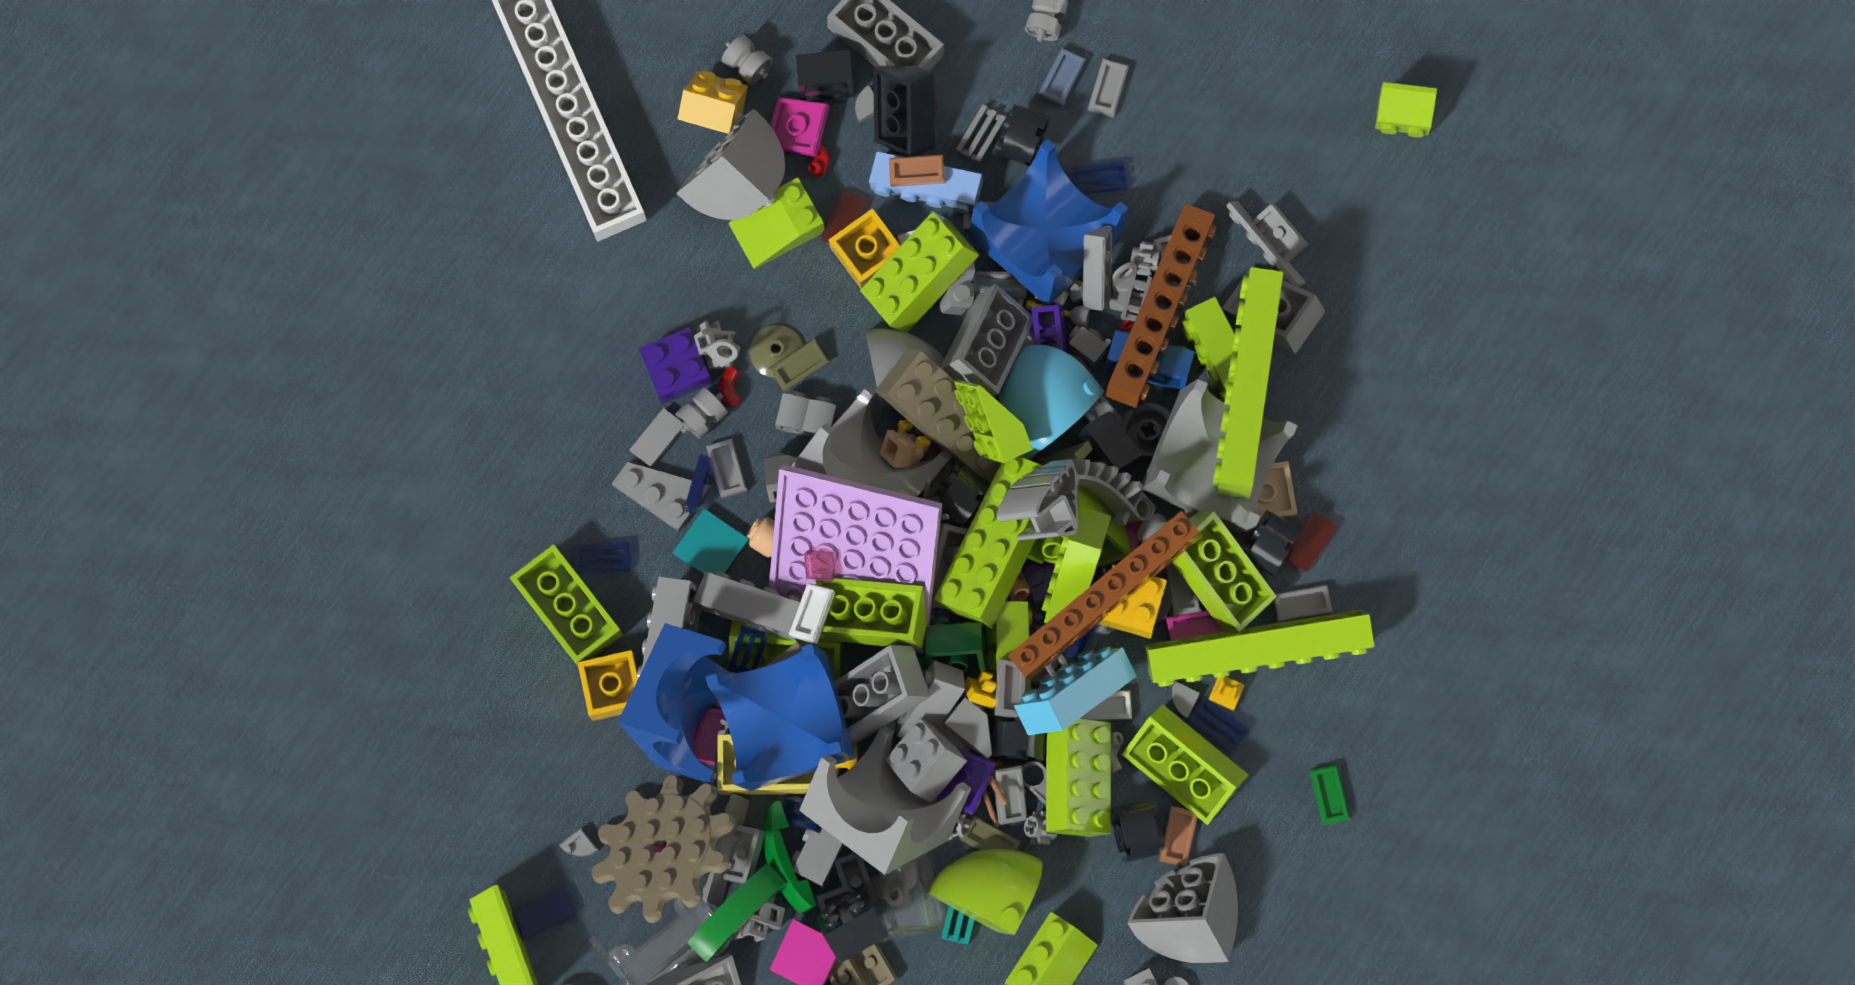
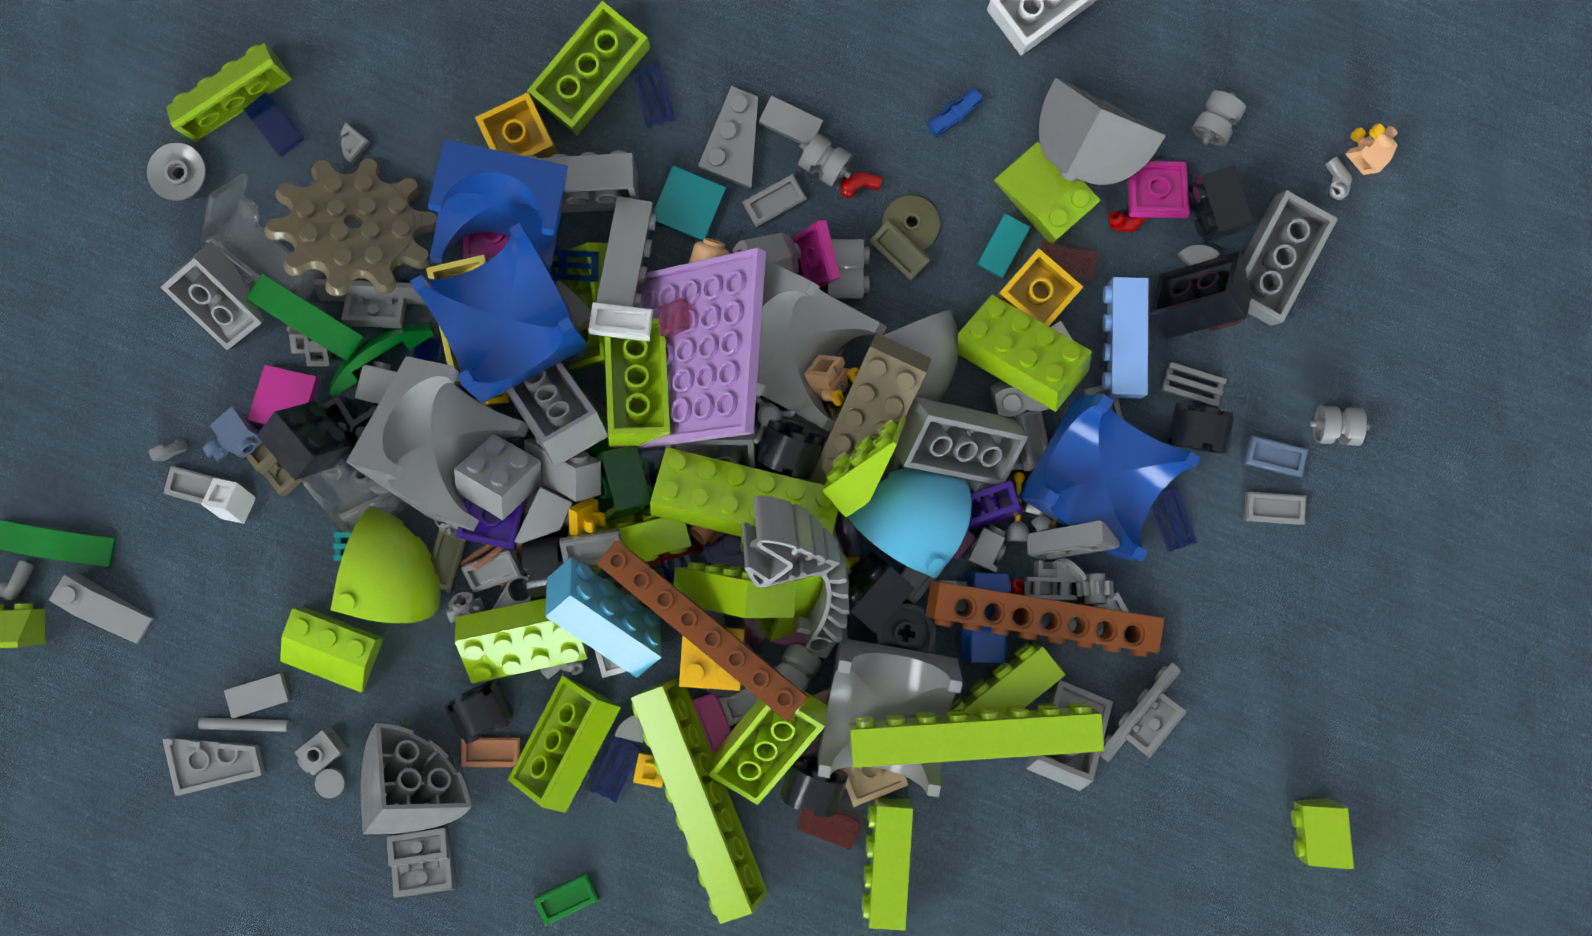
camera: 75 degrees right, 10 degrees up
(675, 366) = (869, 120): dark purple brick -> none
(684, 289) = (955, 112): none -> blue pin
(698, 484) = (746, 173): clear blue tile -> none
(713, 101) = (1163, 91): yellow brick -> none
(716, 345) = (900, 151): light grey piece -> none
(786, 435) = (817, 254): none -> dark pink tile
(816, 273) = (1003, 246): none -> teal tile
(916, 170) = (1135, 325): nougat tile -> none
(1075, 452) = (853, 552): olive tile -> none
(1268, 923) = (420, 862): none -> light grey slope
(1302, 604) = (761, 830): light grey tile -> none
(1352, 491) = (889, 863): none -> lime brick

